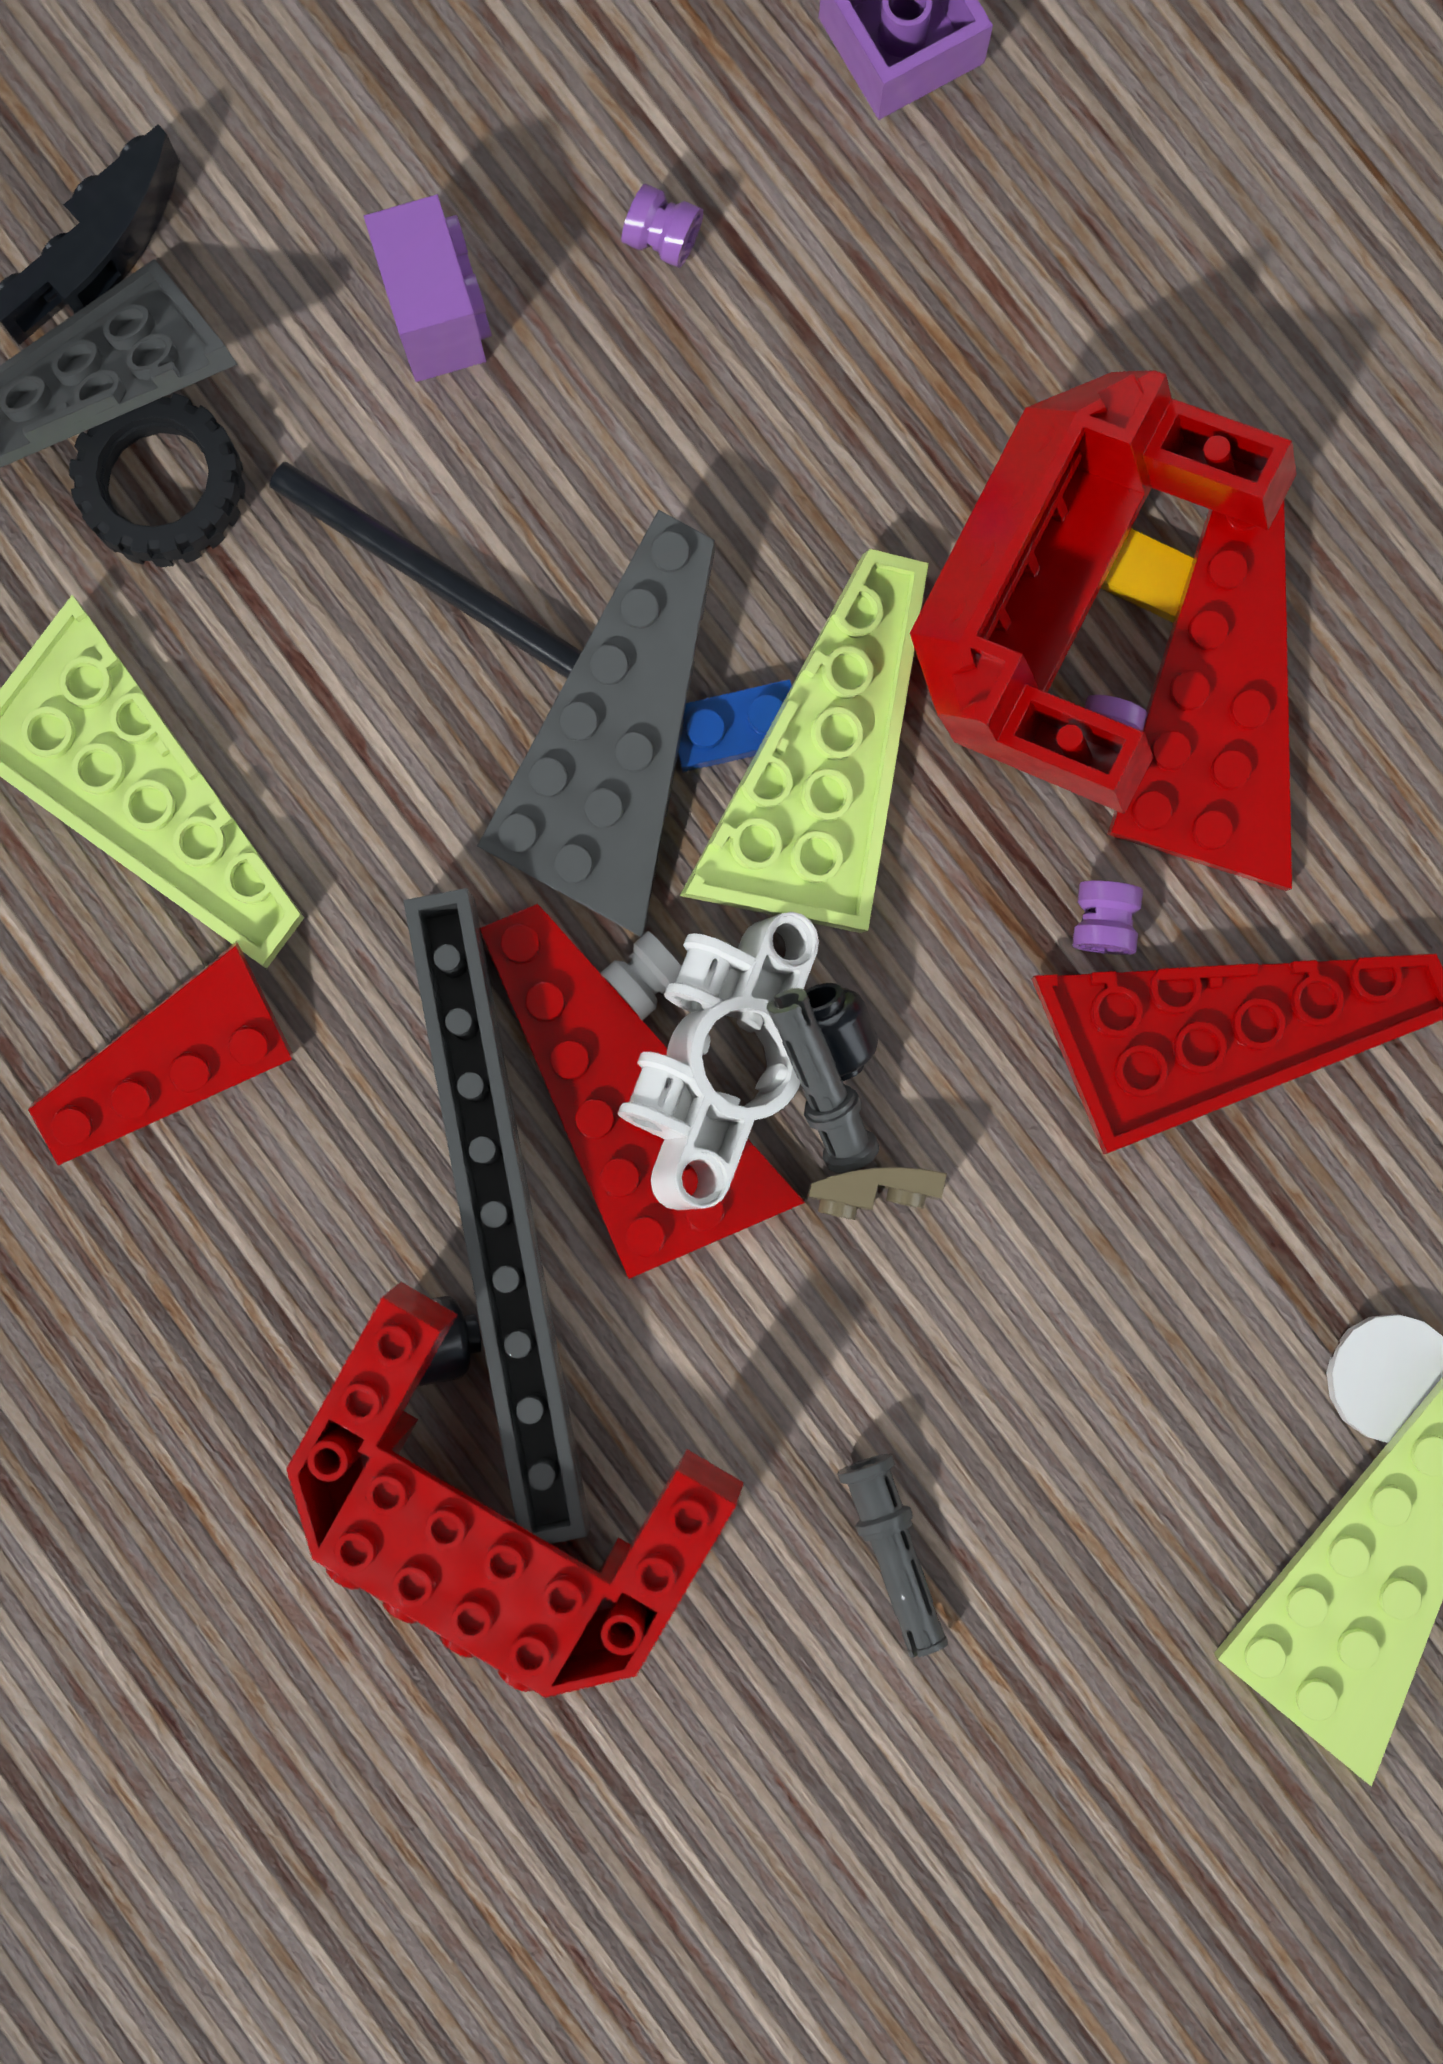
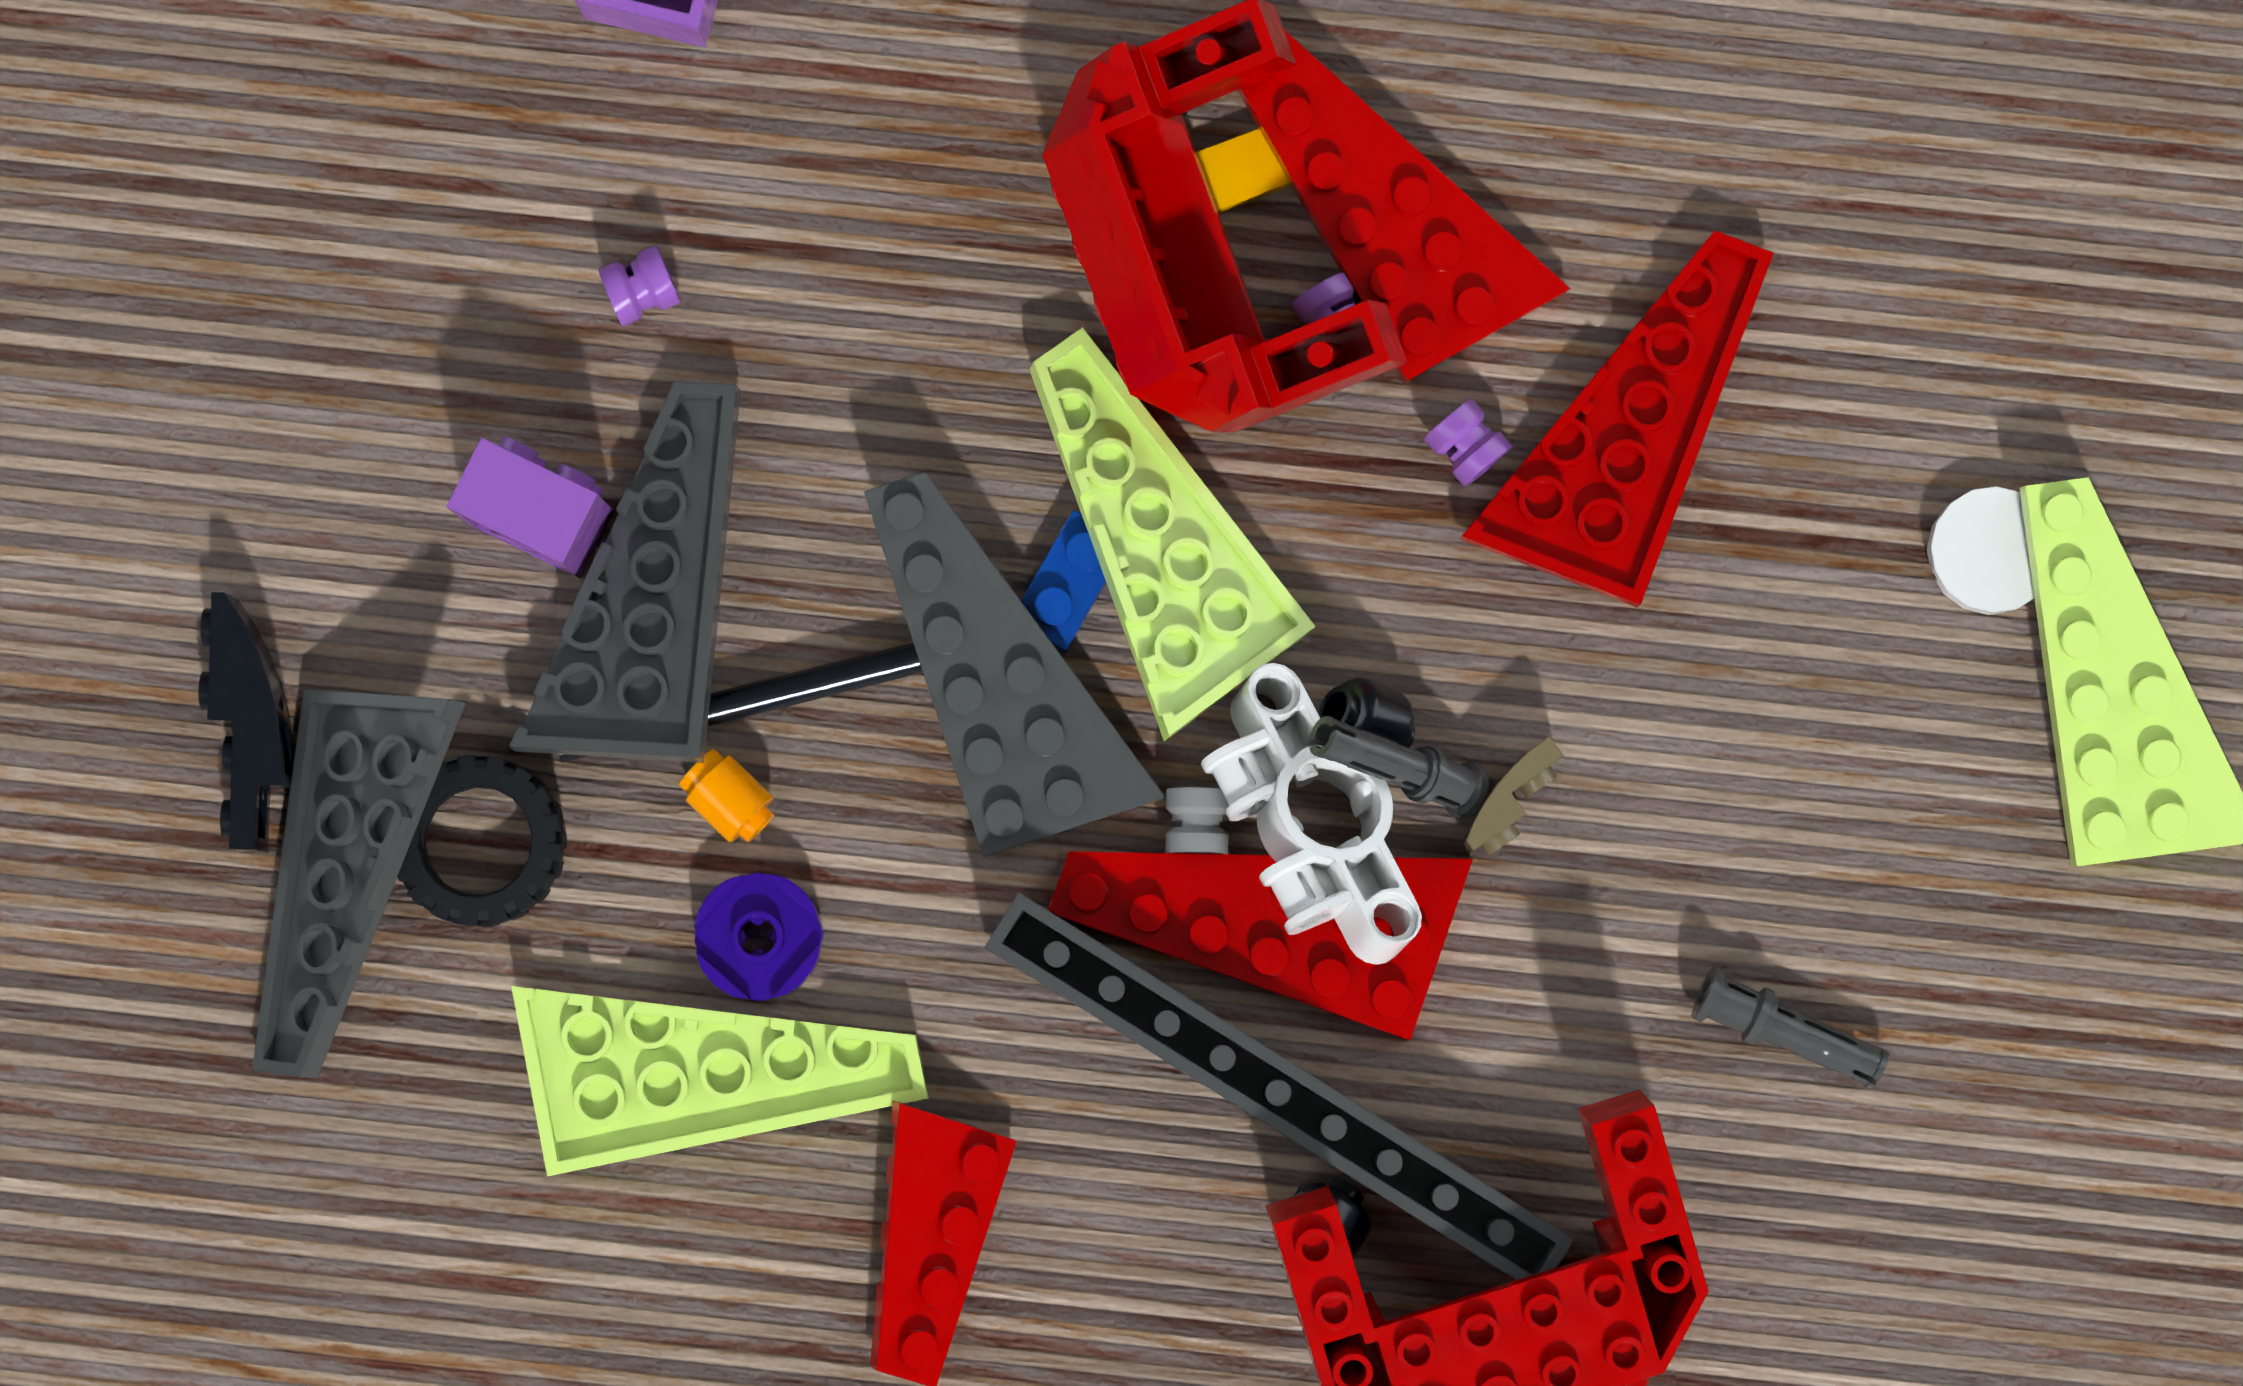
camera: 45 degrees left, 0 degrees up
(245, 712) = (721, 939): none -> dark purple plate
(350, 623) = (727, 797): none -> light orange brick
(431, 442) = (646, 619): none -> dark grey wing

